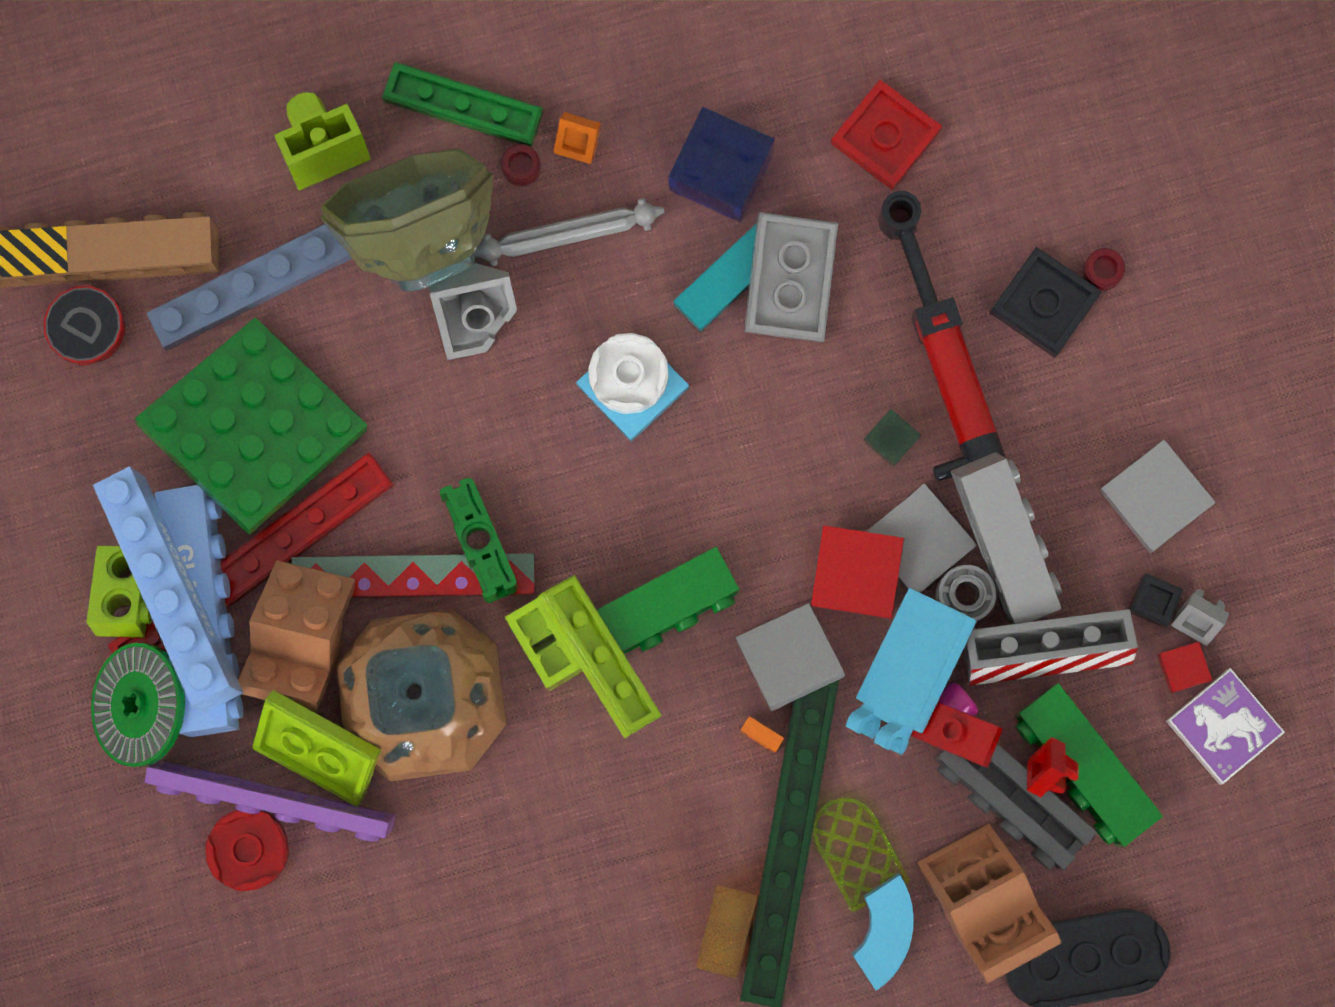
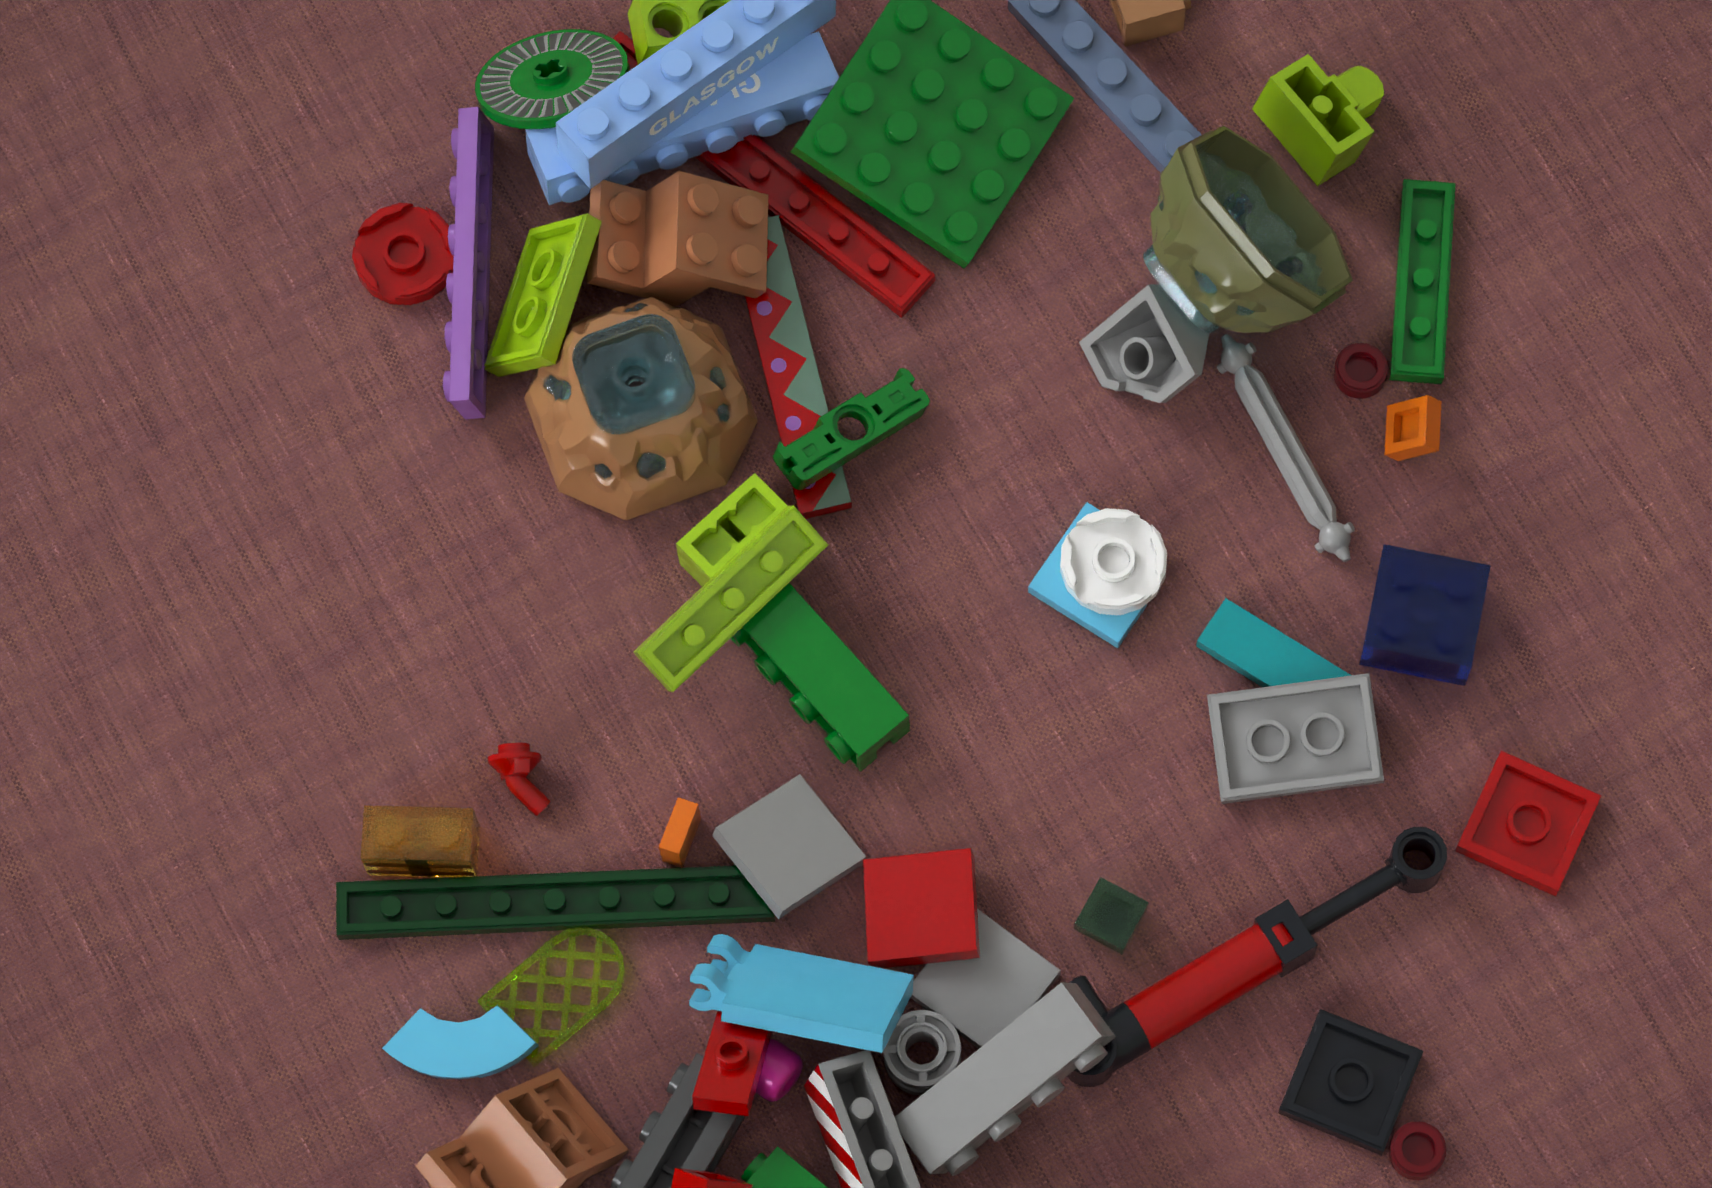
camera: 75 degrees right, 10 degrees down
(681, 846) = (514, 764): none -> red plate

